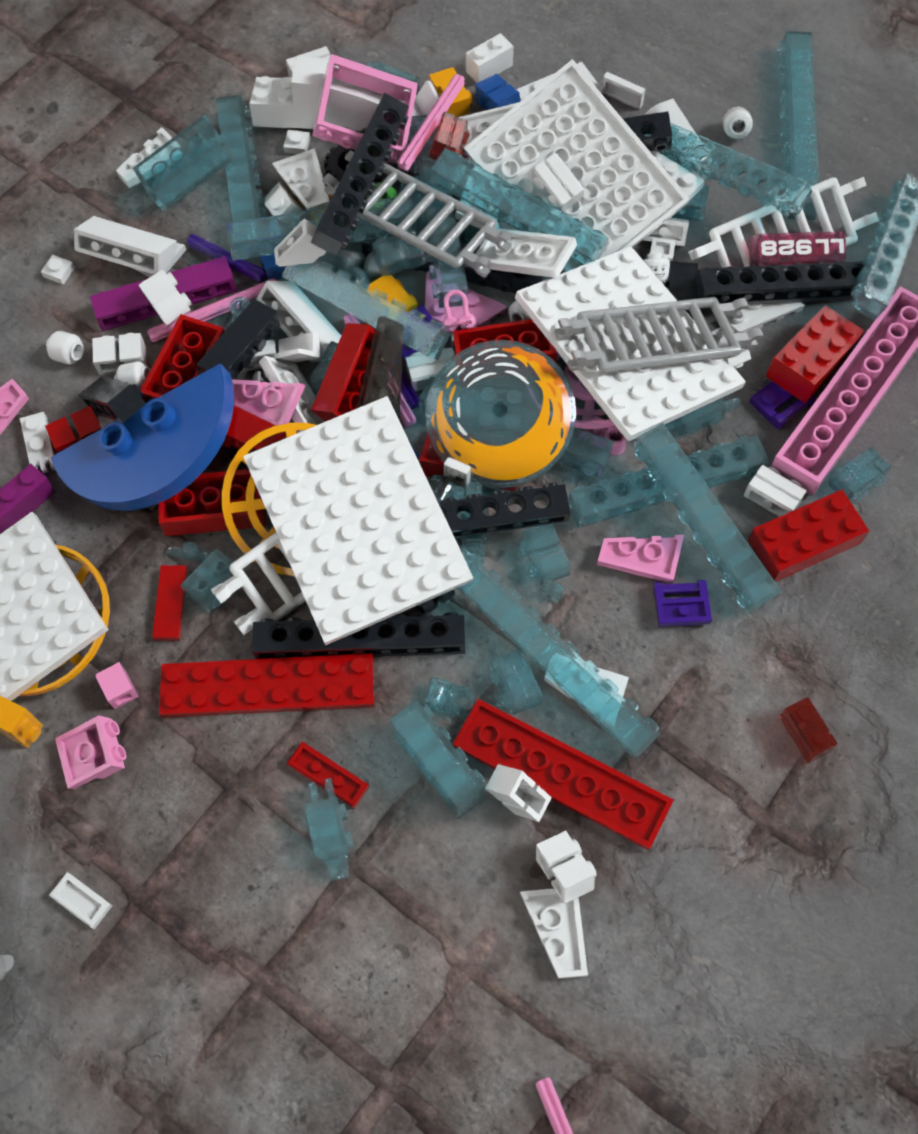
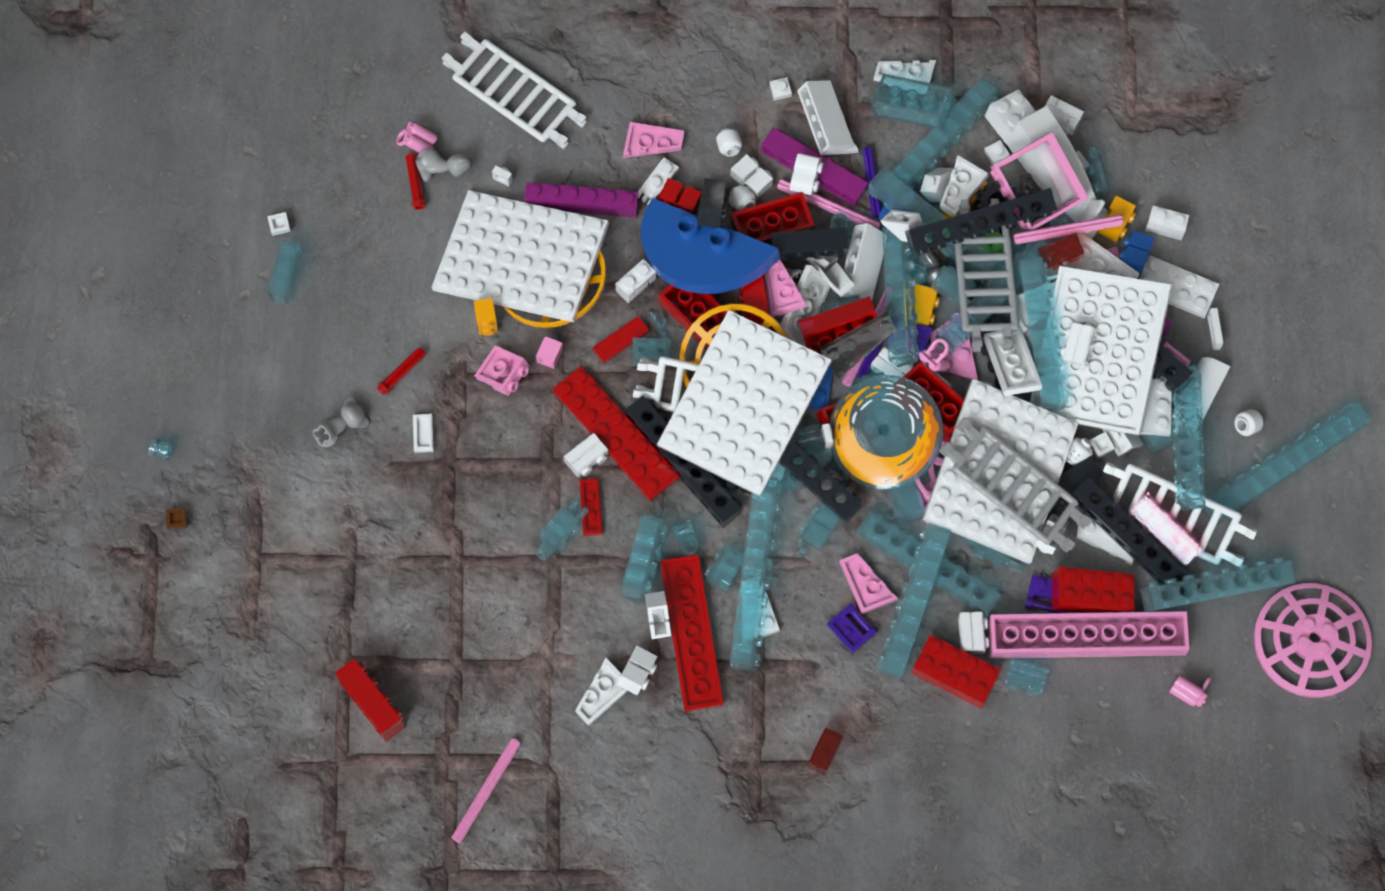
camera: 50 degrees right, 5 degrees up
(121, 538) = (635, 281): none -> white brick
(266, 734) = (586, 455): none -> white brick

